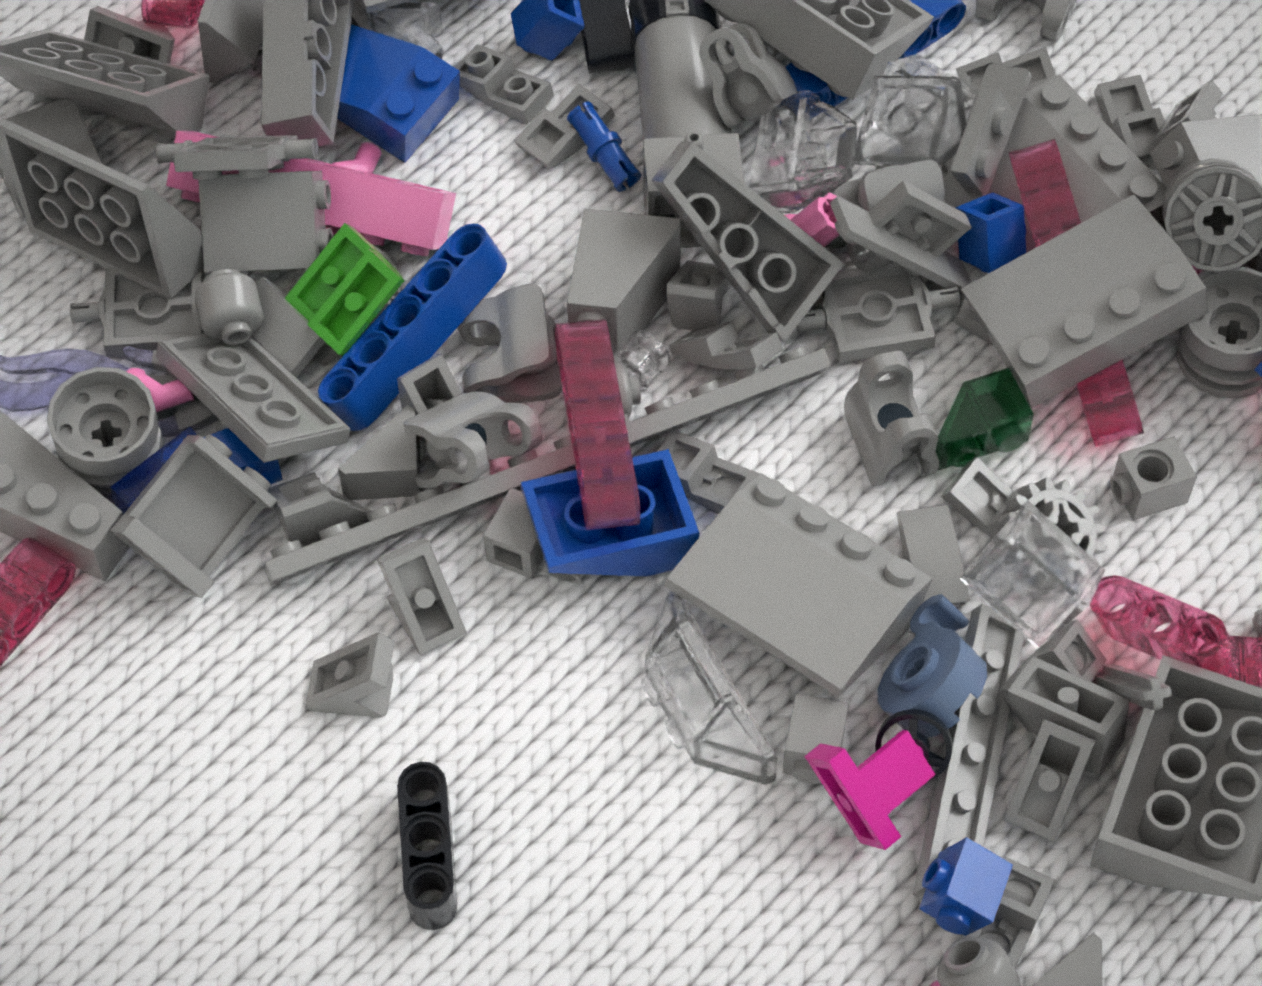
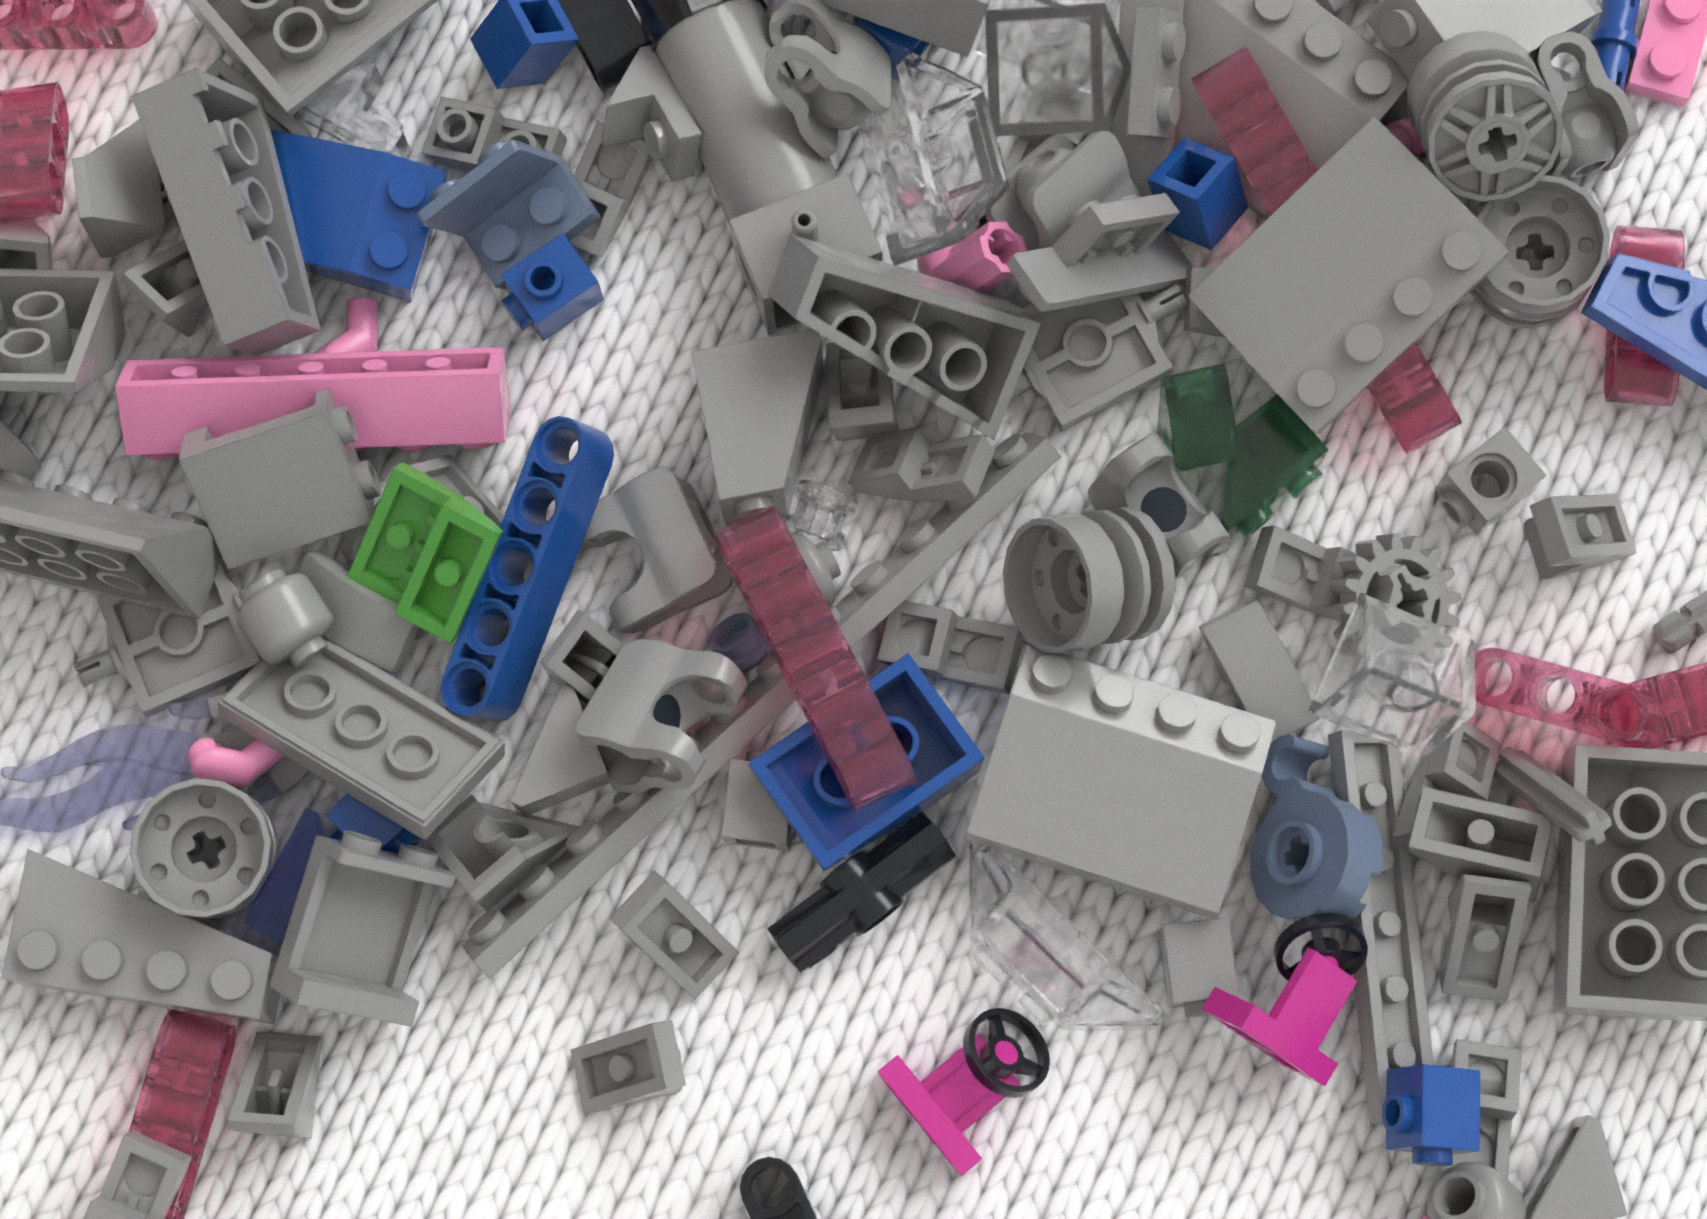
camera: 15 degrees left, 20 degrees up
(84, 619) = (278, 1086): none -> light grey slope
(240, 96) = (169, 287): none -> light grey slope
(249, 155) = (217, 417): light grey plate -> none
(494, 107) = (510, 205): none -> sand blue bracket
(504, 172) = (550, 288): none -> blue brick
(553, 425) = (739, 641): none -> sand blue plate
(574, 614) = (861, 892): none -> black piece
(604, 146) = (664, 208): blue pin -> none
(605, 775) = (969, 1083): none -> dark pink piece
(614, 79) = (652, 109): none -> light grey slope
(821, 440) = (1088, 579): none -> light grey wheel
(941, 359) = (1198, 417): none -> clear green slope
(1210, 531) = (1577, 533): none -> light grey slope

